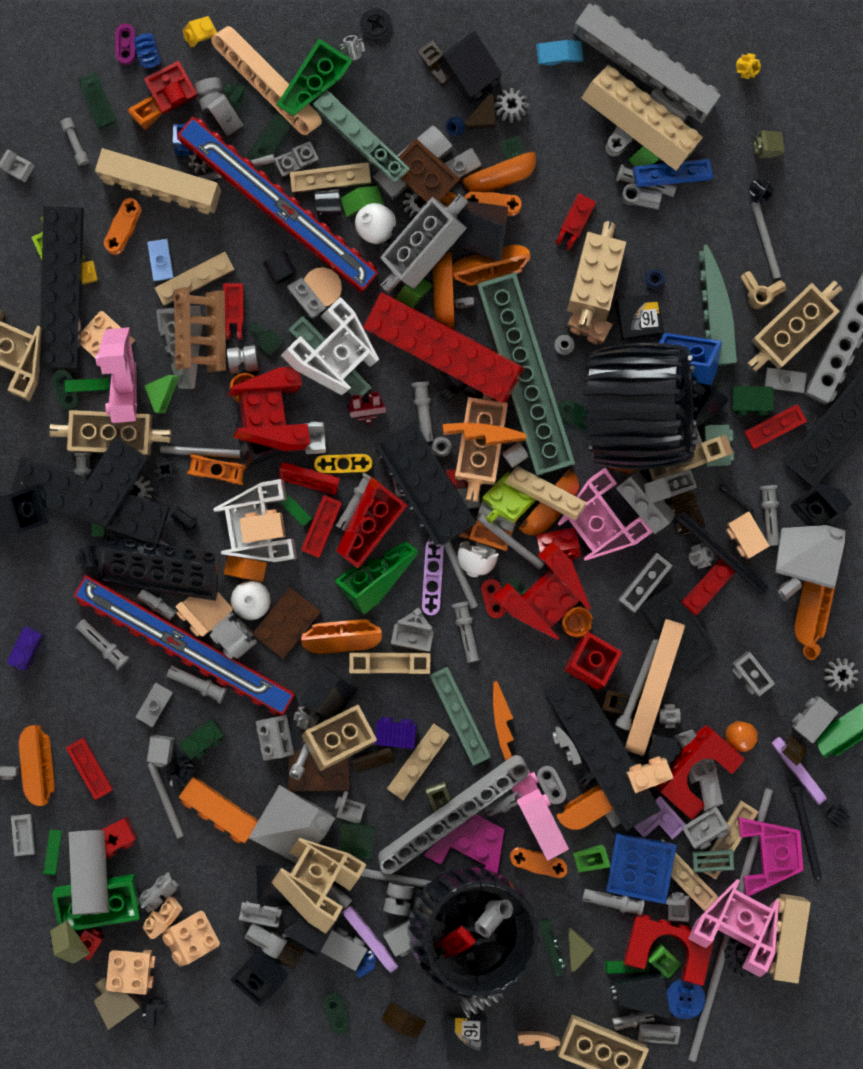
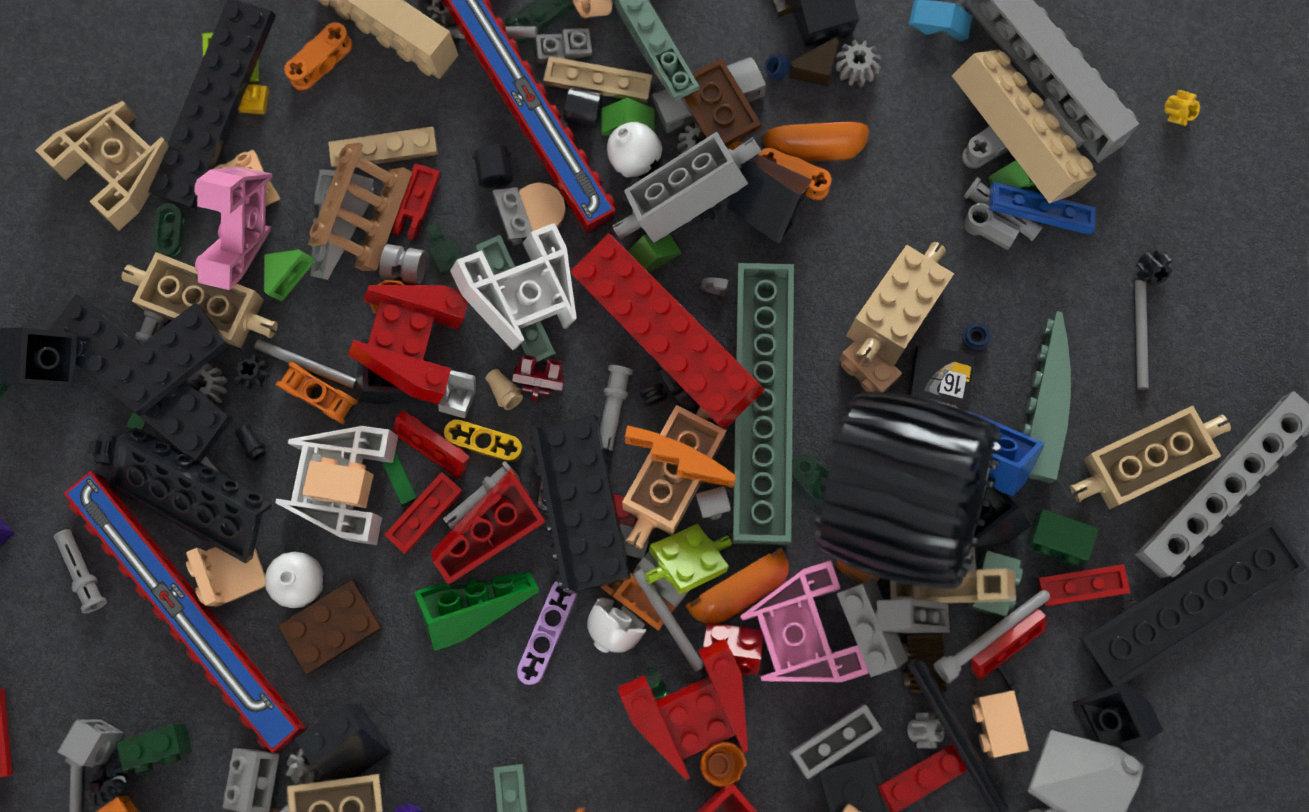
camera: 25 degrees right, 10 degrees down
(87, 385) = (191, 231): green piece -> none
(154, 704) = (113, 677): light grey plate -> none
(156, 604) = (169, 542): light grey pin -> none
(160, 260) = (350, 112): light blue plate -> none
(206, 687) = (188, 677): light grey pin -> none
(233, 636) = (248, 620): light grey brick -> none
(245, 568) = (305, 535): orange slope -> none
(341, 636) = (394, 671): orange brick -> none
(345, 424) = (505, 391): none -> tan cone
(390, 663) = (444, 730): tan arch -> none
(413, 632) = (493, 700): light grey slope -> none
(443, 290) = (693, 260): orange brick -> none
(446, 442) = (617, 453): light grey plate -> none
(460, 575) = (586, 643): light grey bar -> none
(464, 163) = (774, 115): light grey plate -> none
(464, 622) = (567, 709): light grey pin -> none
(478, 268) = (756, 247): orange brick -> none
(489, 600) = (611, 690): red plate -> none
(512, 148) = (842, 111): clear green tile -> none
(546, 493) = (738, 569): tan plate -> none
(564, 351) = (824, 389): light grey plate -> none
(576, 219) = (895, 229): red hinge -> none
(703, 510) = (950, 666): none -> light grey piece
(737, 481) = (1008, 644): none -> red plate
(766, 293) = (1121, 401): tan axle -> none
(768, 144) = (1182, 212): olive slope -> none
(770, 503) = (1049, 691): light grey pin -> none
(785, 380) = (1116, 527): light grey plate -> none

